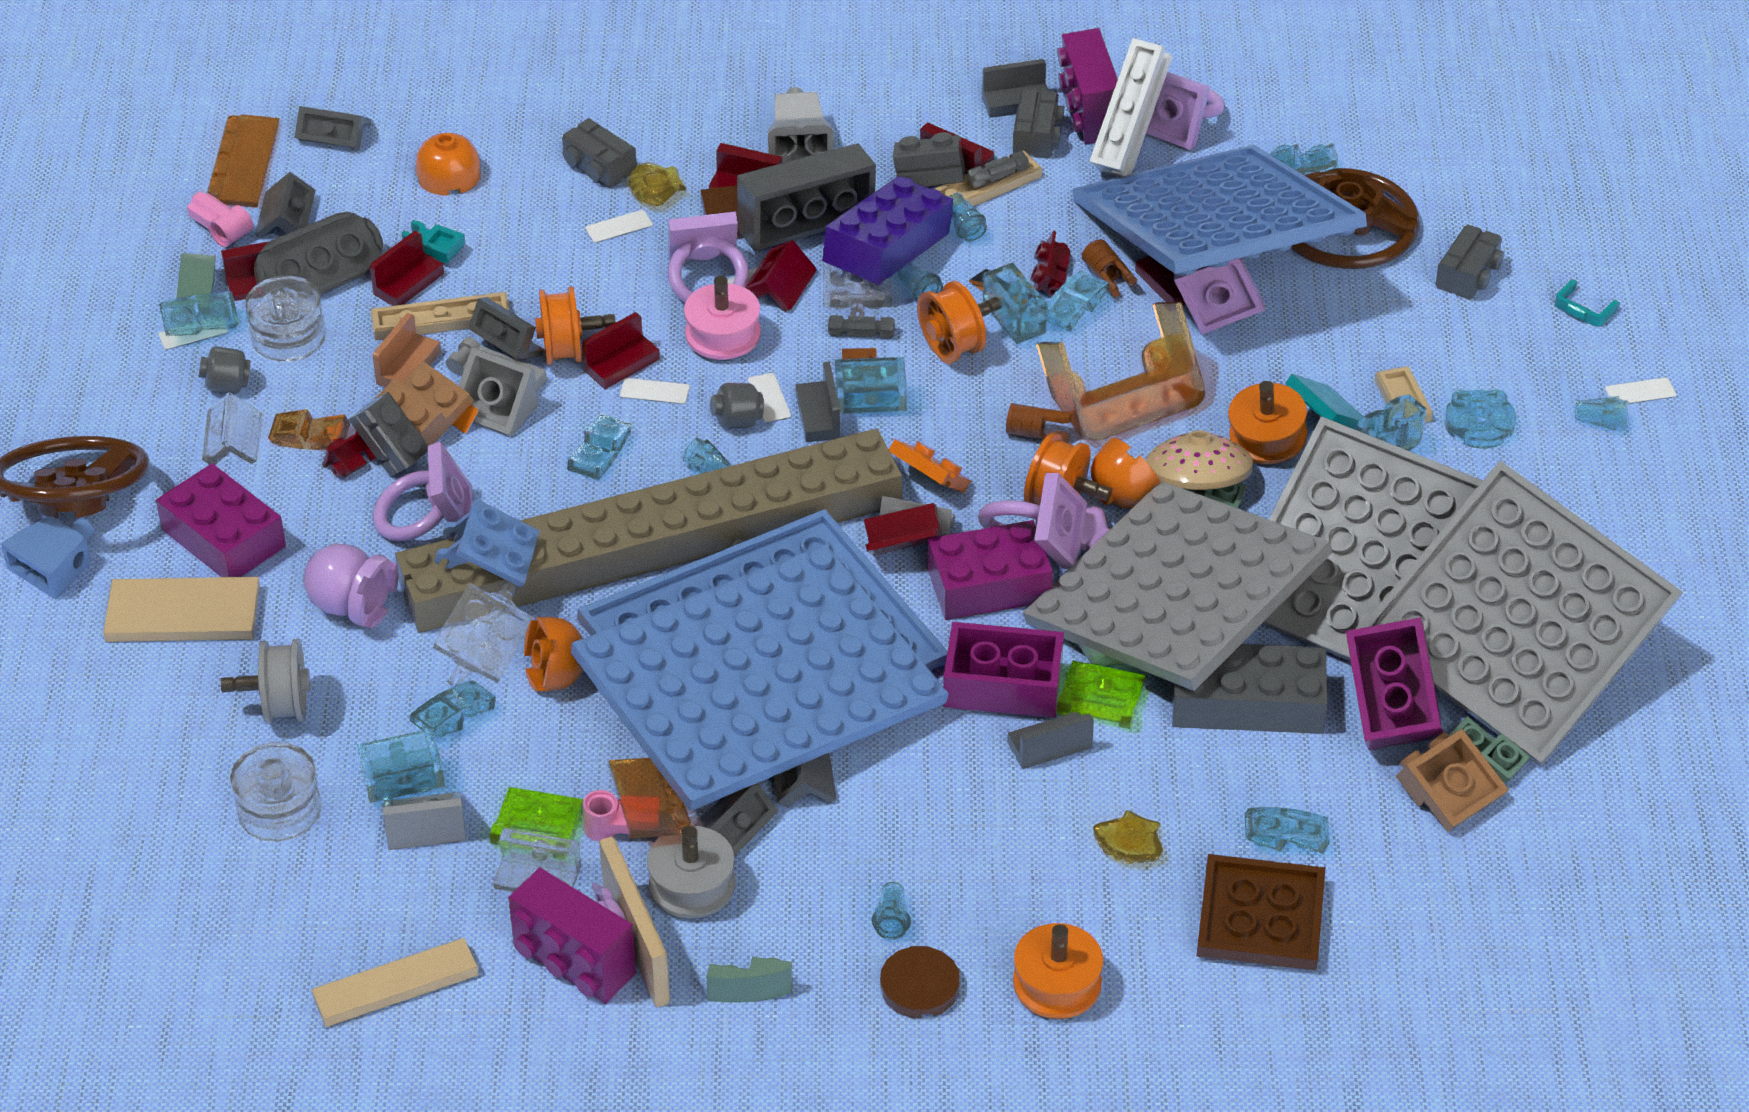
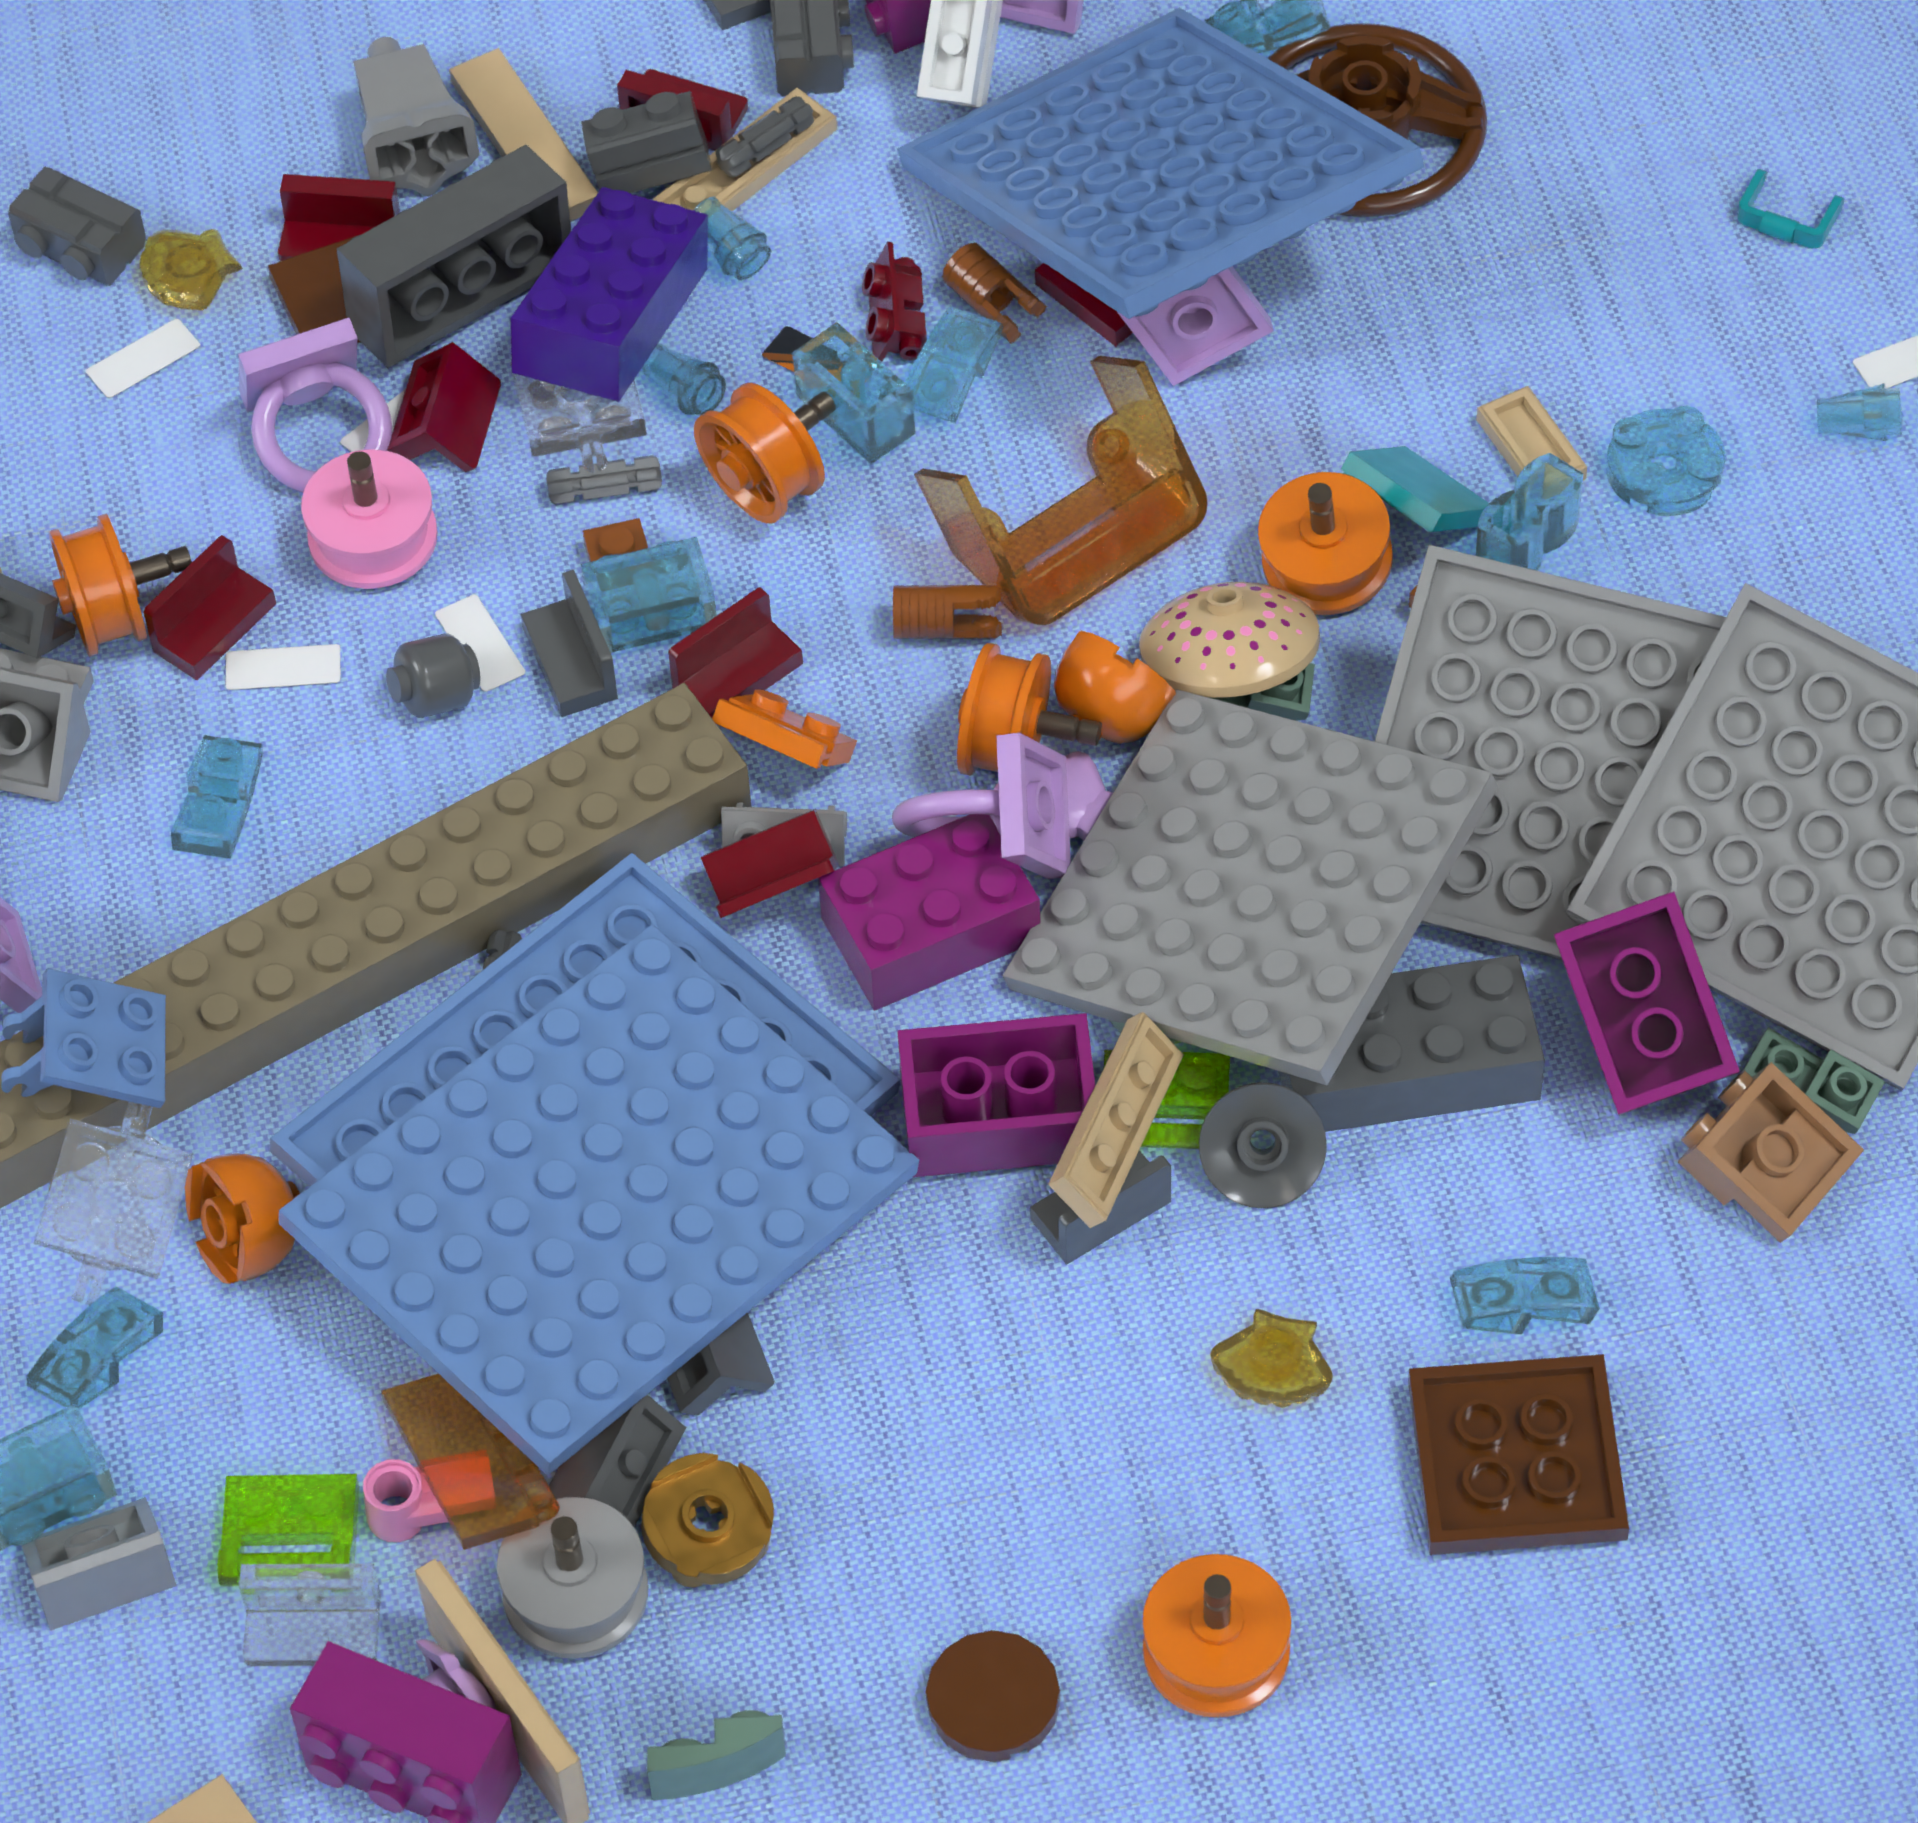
camera: 10 degrees left, 10 degrees up
(704, 456) = (407, 788): clear light blue cone -> none
(775, 877) = (702, 1555): none -> pearl gold plate
(853, 128) = (515, 119): none -> tan tile
(891, 913) = (918, 1580): clear light blue cone -> none
(912, 420) = (734, 653): none -> dark red panel
(1066, 689) = (1116, 1120): none -> tan tile
(1137, 737) = (1262, 1175): none -> dark grey dish
(1469, 262) = (1585, 170): dark grey brick -> none

